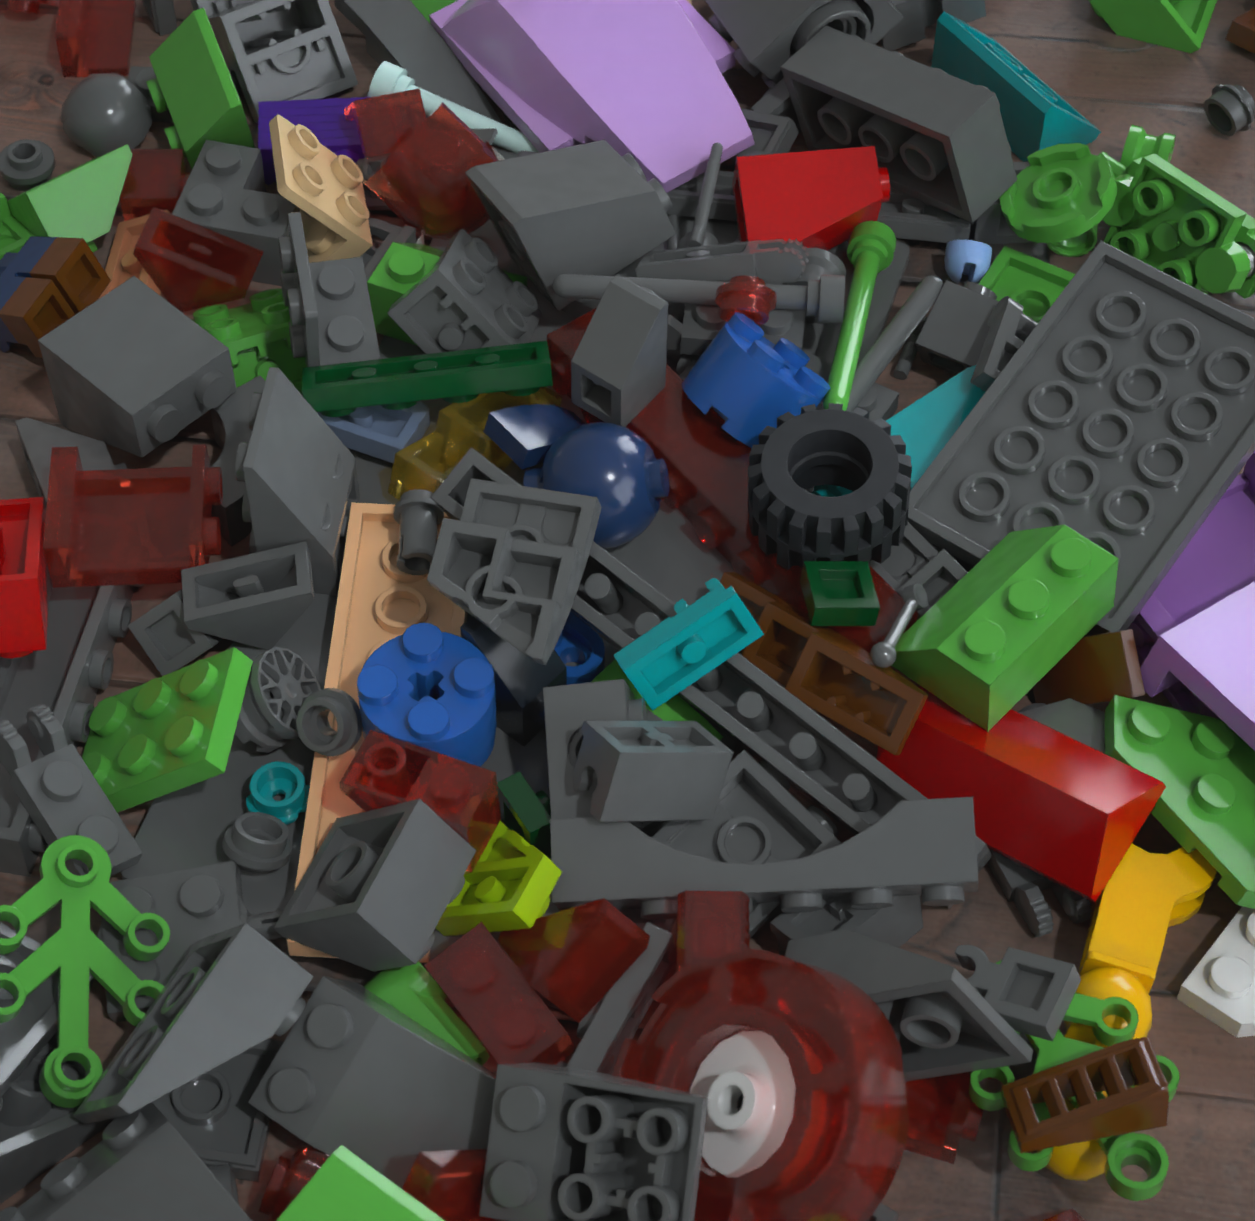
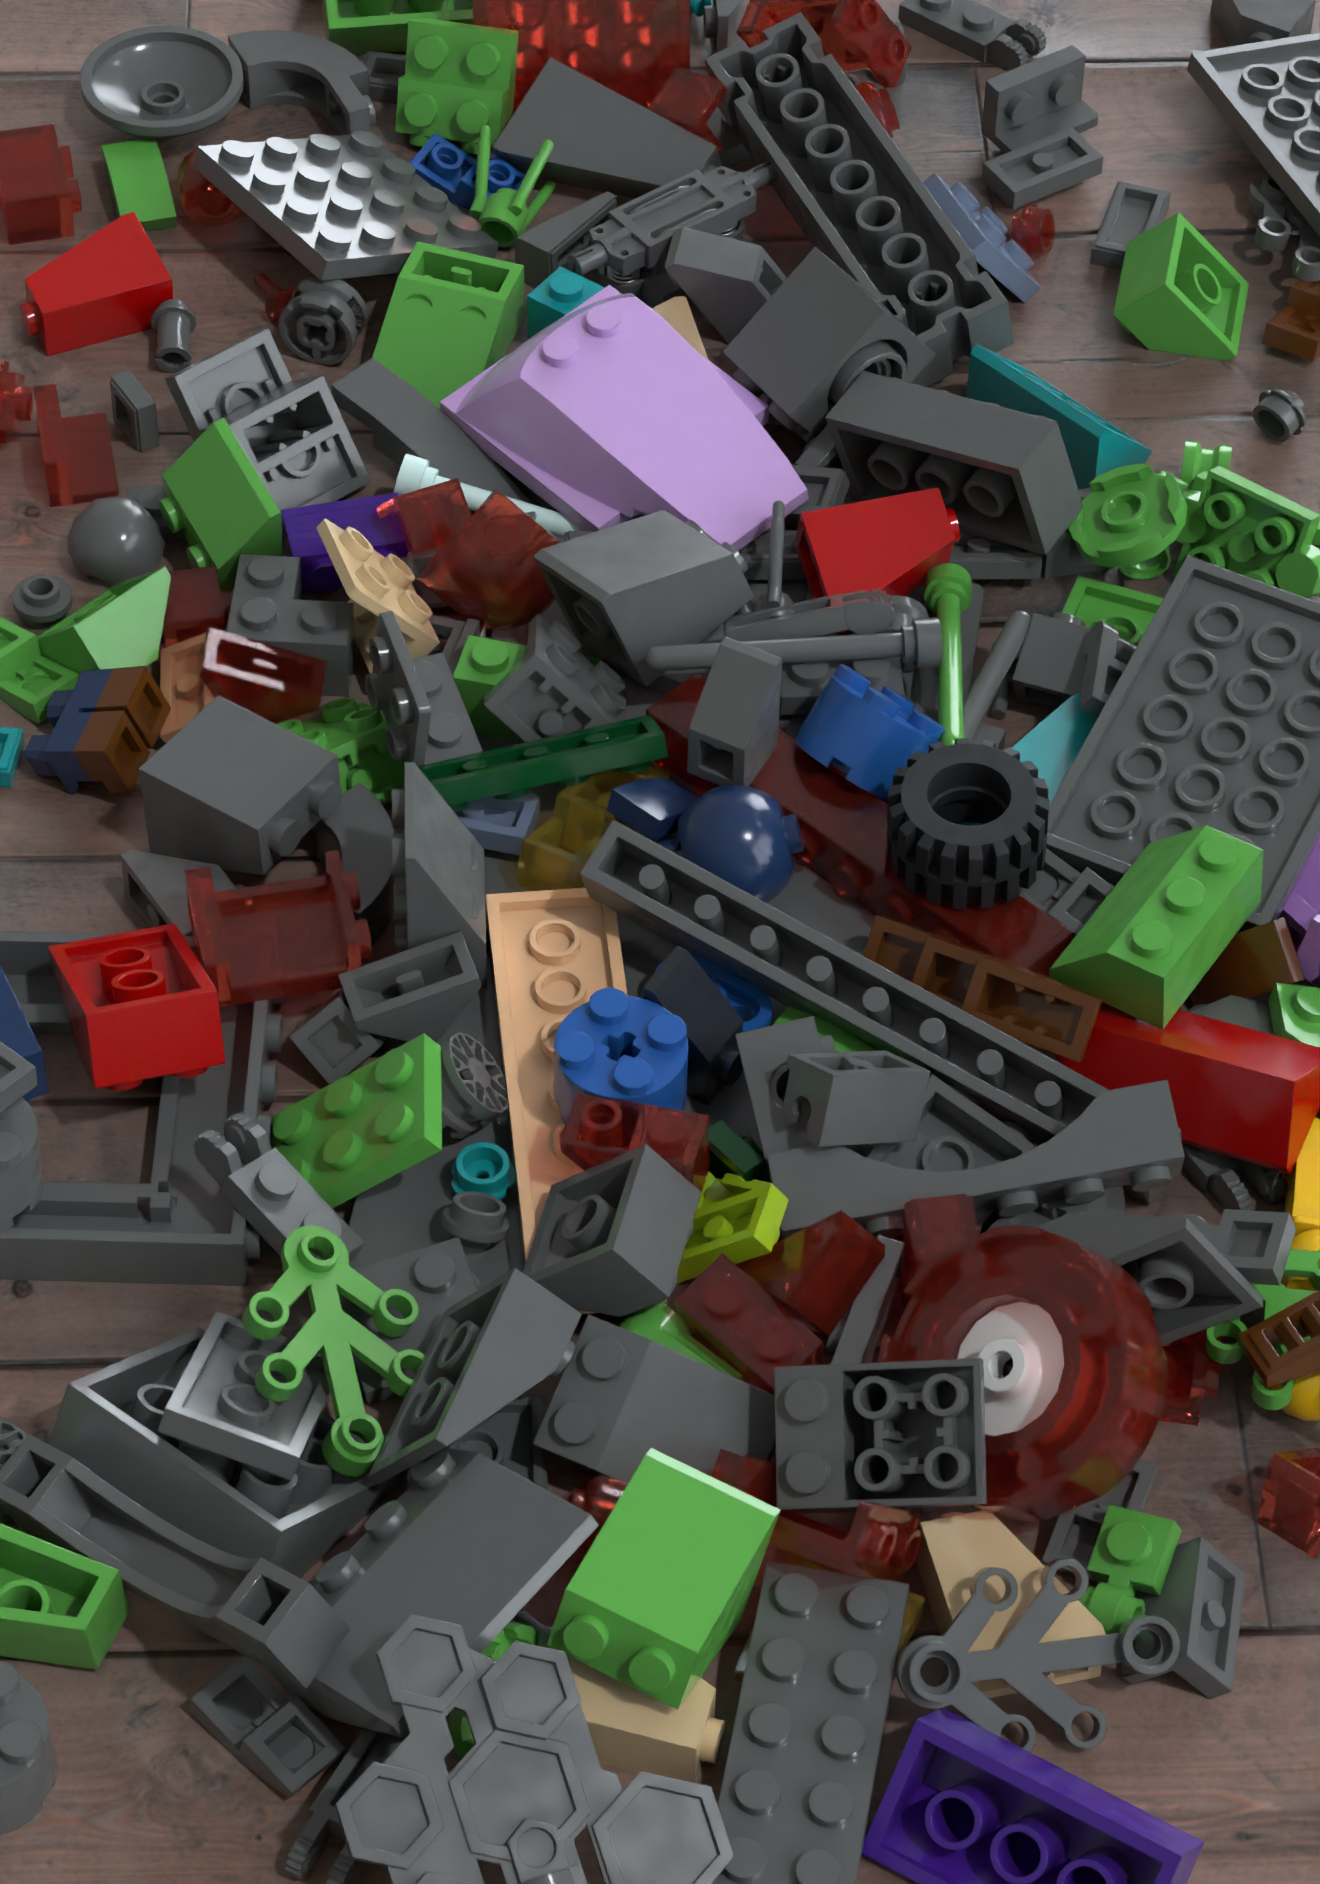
camera: 10 degrees left, 5 degrees down
(314, 726) = (508, 1100): dark grey plate -> none
(418, 524) = (562, 899): dark grey pin -> none
(516, 560) = (685, 917): dark grey slope -> none
(688, 644) = (867, 977): teal plate -> none
(746, 296) = (845, 647): clear red plate -> none
(839, 593) = (996, 919): dark green plate -> none
(884, 653) = (1053, 966): dark grey hinge -> none
(967, 258) = (1043, 591): light blue hinge -> none

